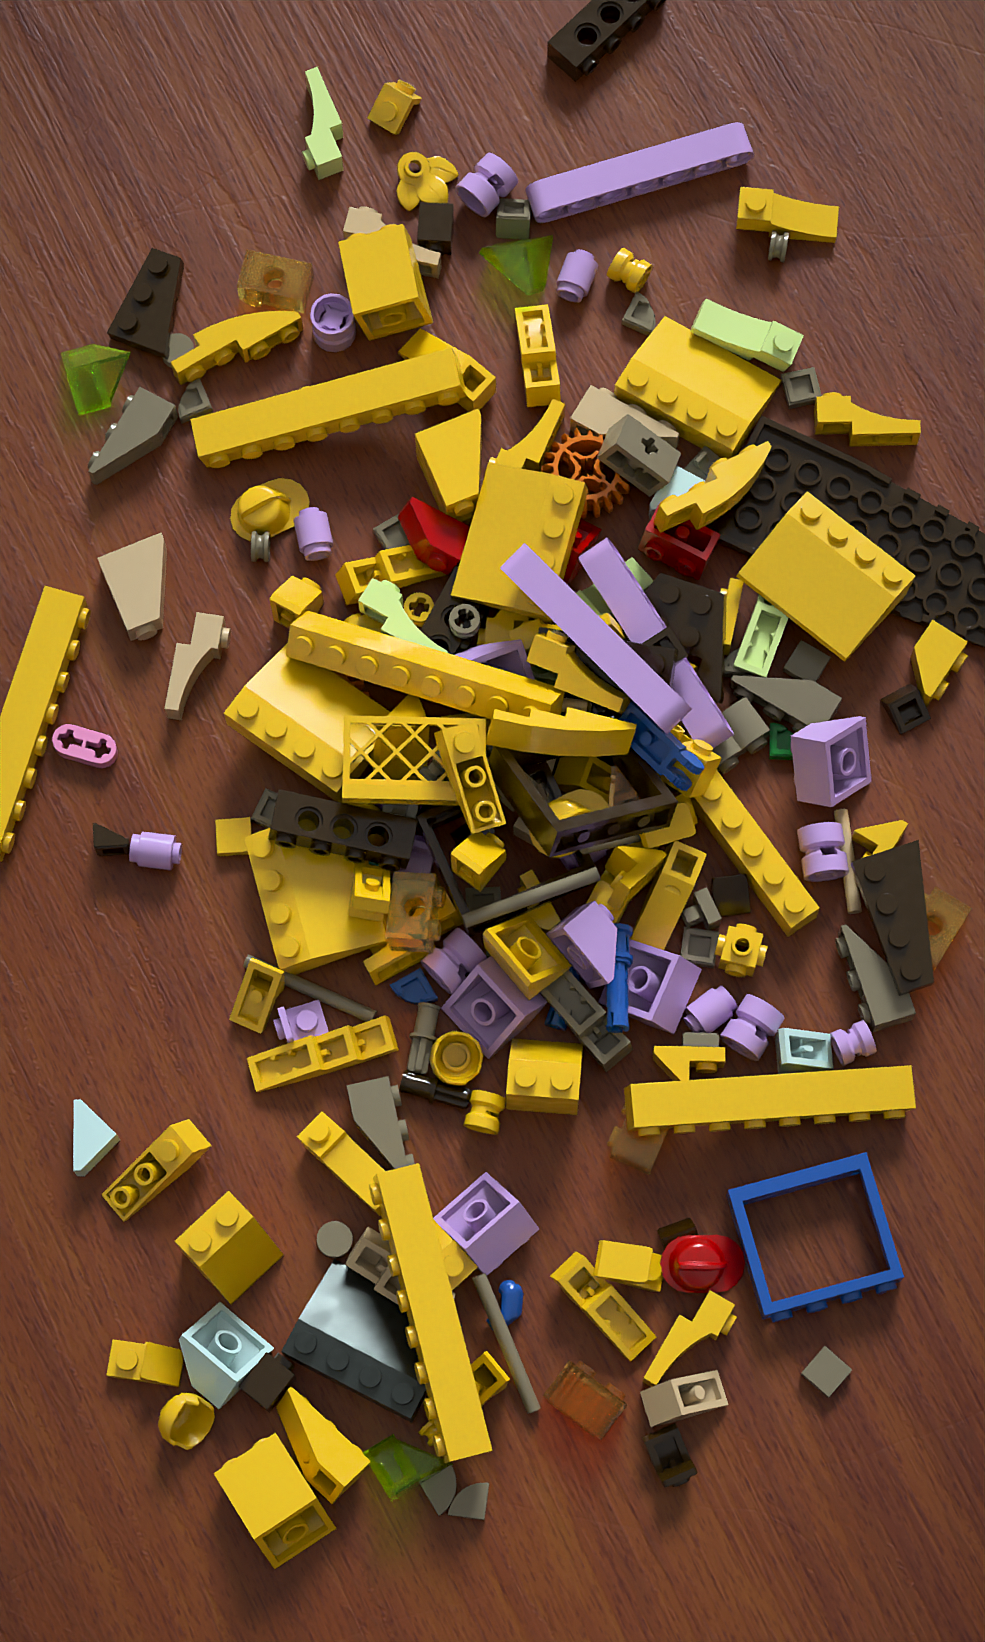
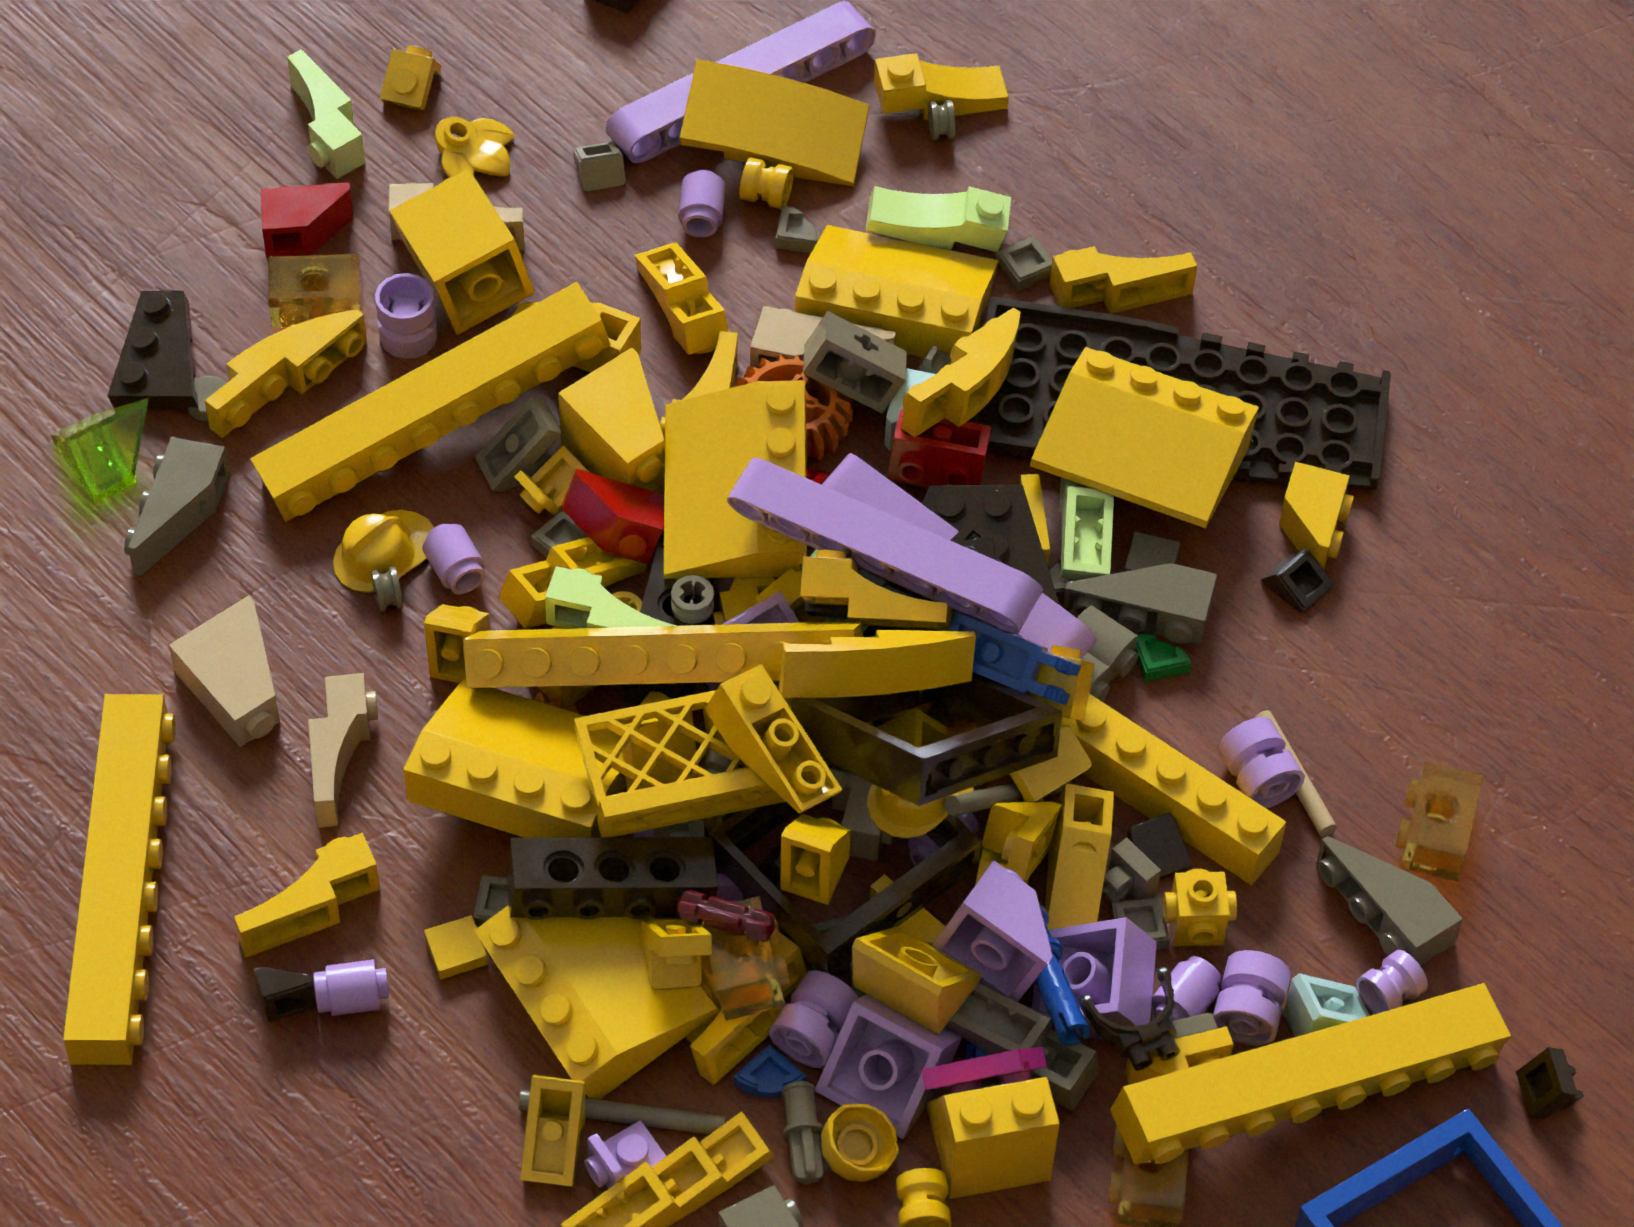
camera: 20 degrees left, 20 degrees down
(86, 738) = (212, 886): bright pink beam -> none
(170, 762) = (340, 874): none -> yellow slope
(194, 402) = (244, 445): dark tan tile -> none
(282, 214) = (303, 217): none -> red slope
(384, 456) = (519, 445): none -> dark tan slope
(397, 491) = (550, 483): none -> yellow bracket
(407, 885) = (726, 916): none -> dark red axle
(434, 1090) = (843, 1195): dark brown axle -> none
(436, 227) = (506, 183): dark brown brick -> none
(482, 189) = (555, 130): lavender wheel -> none
(522, 261) = (627, 197): clear neon green slope -> none
(531, 897) = (900, 890): dark tan bar -> none
(548, 1038) = (968, 1074): none -> dark pink plate
(649, 222) = (774, 121): none -> yellow slope
(664, 1047) = (1141, 1041): none -> dark brown helmet
(830, 760) = (1229, 650): lavender slope -> none
(880, 837) = (1327, 738): yellow slope -> none
(897, 907) = (1391, 801): dark brown wing -> none
(931, 1144) = (1548, 1083): none -> dark brown tile

